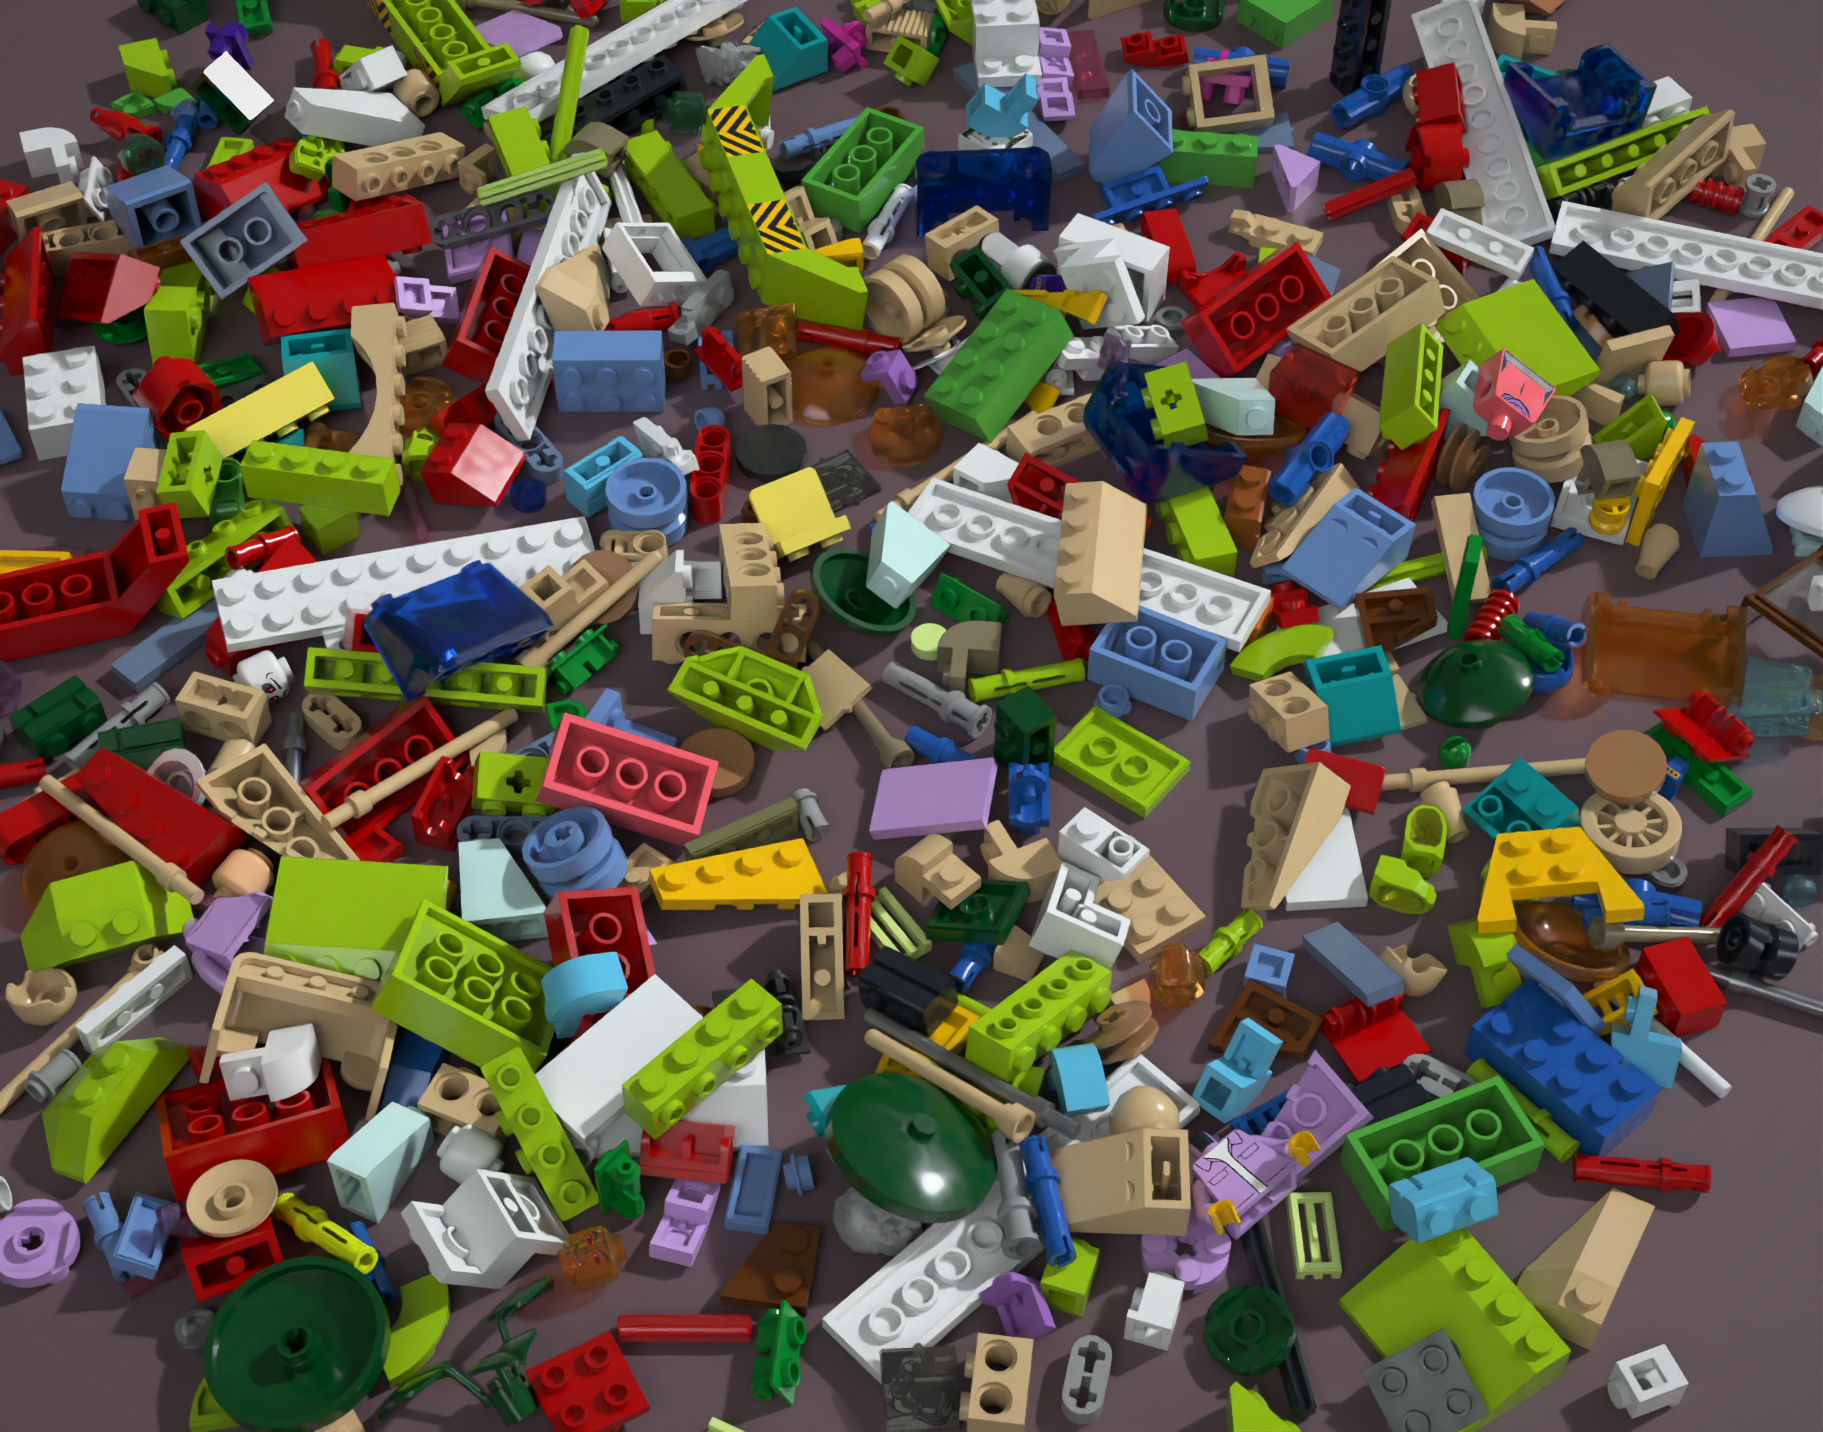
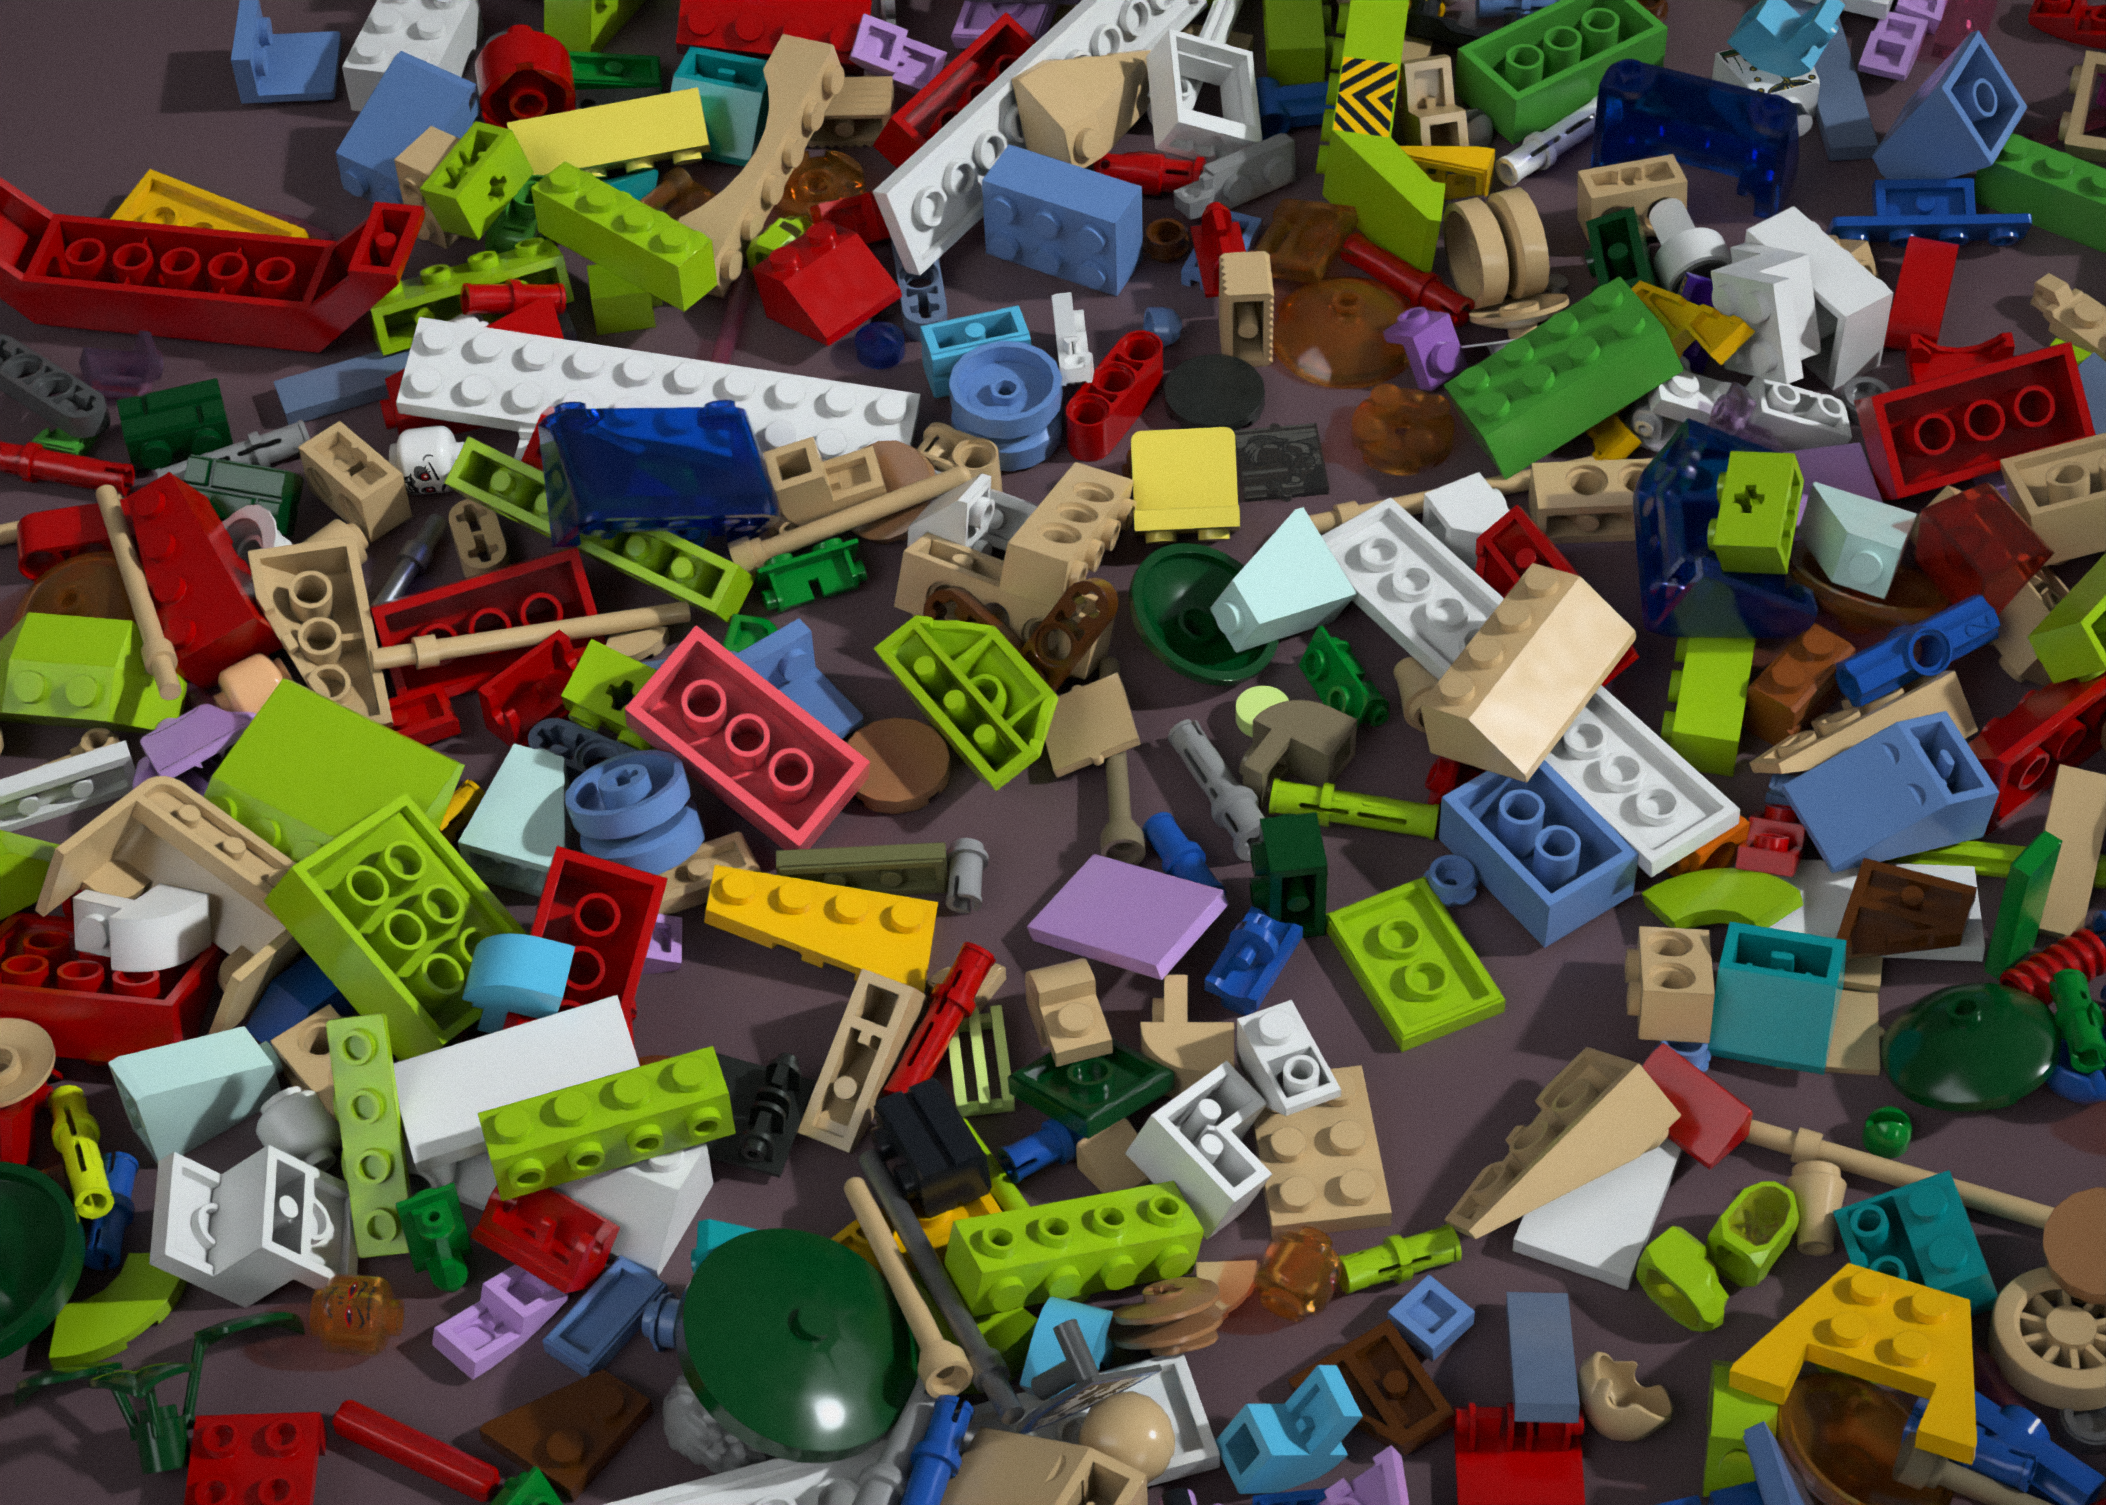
camera: 30 degrees right, 0 degrees up
(1106, 1083) = (1077, 1369): none -> dark grey shield

